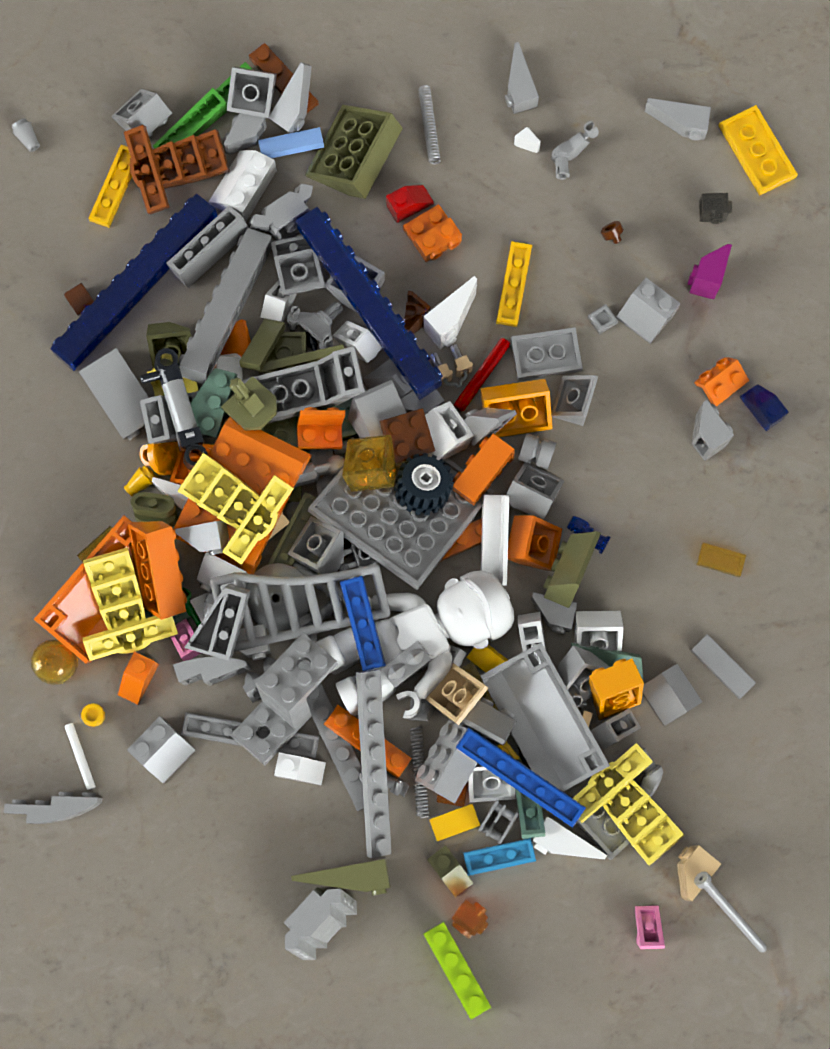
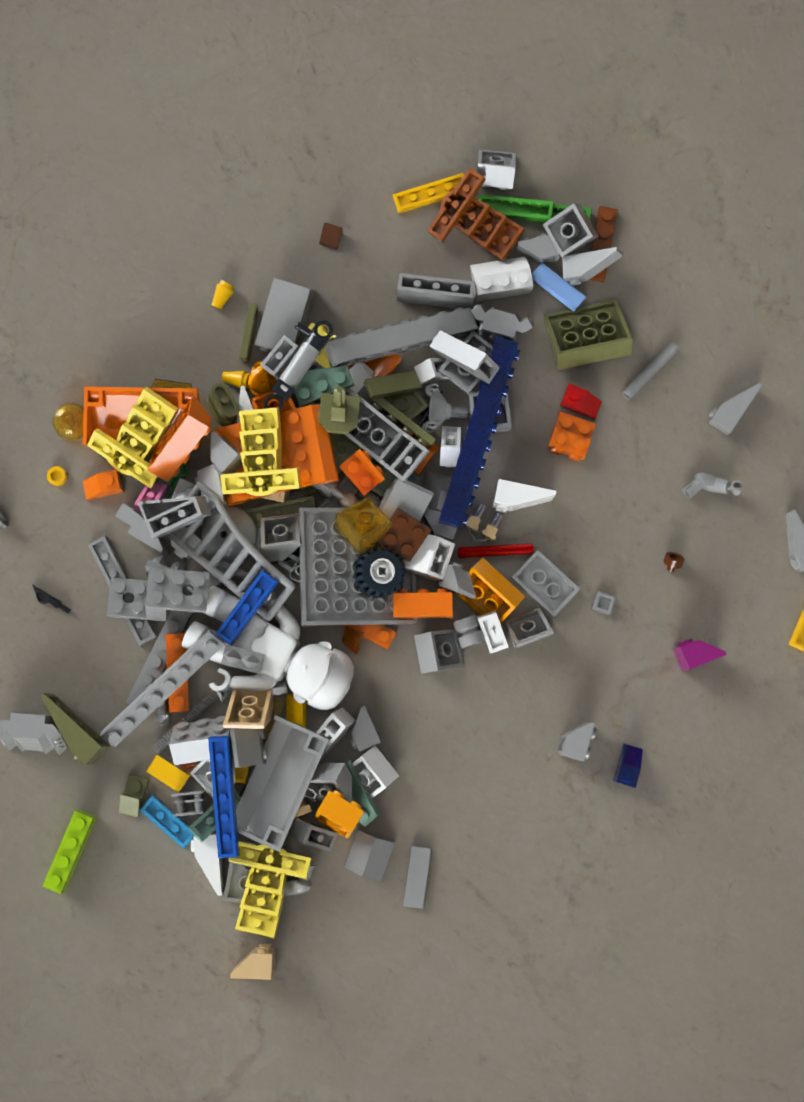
camera: 50 degrees right, 5 degrees up
(25, 133) = (418, 103): light grey cone -> none
(51, 434) = (222, 294): none -> yellow cone
(80, 757) = (23, 490): white bar -> none
(107, 437) = (249, 333): none -> olive tile
(132, 284) = (370, 262): clear blue brick -> none
(161, 749) = (67, 539): light grey slope -> none
(167, 336) = (345, 318): olive slope -> none
(207, 808) = (49, 599): none -> black hand
(291, 259) = (465, 356): none -> slope
(299, 768) = (124, 641): white slope -> none
(415, 312) = (499, 470): reddish brown slope -> none
(463, 558) = (353, 638): none -> clear orange slope
(470, 919) = (110, 833): clear orange brick -> none
(495, 536) = (383, 649): white panel -> none
(514, 284) = (579, 521): yellow tile -> none
(527, 140) = (694, 448): white slope -> none
(533, 542) = (401, 679): orange slope -> none
(554, 430) = (492, 631): none -> white plate
(570, 567) = (400, 718): olive slope -> none
(582, 526) = (436, 717): clear blue connector -> none
(648, 310) = (634, 631): light grey slope -> none
(649, 927) = (195, 961): bright pink slope -> none
(703, 880) = (248, 977): light grey bar -> none
(714, 207) = (750, 620): clear smoke brick -> none
(721, 560) = (492, 818): clear yellow tile -> none
(722, 380) = (624, 722): orange bracket -> none

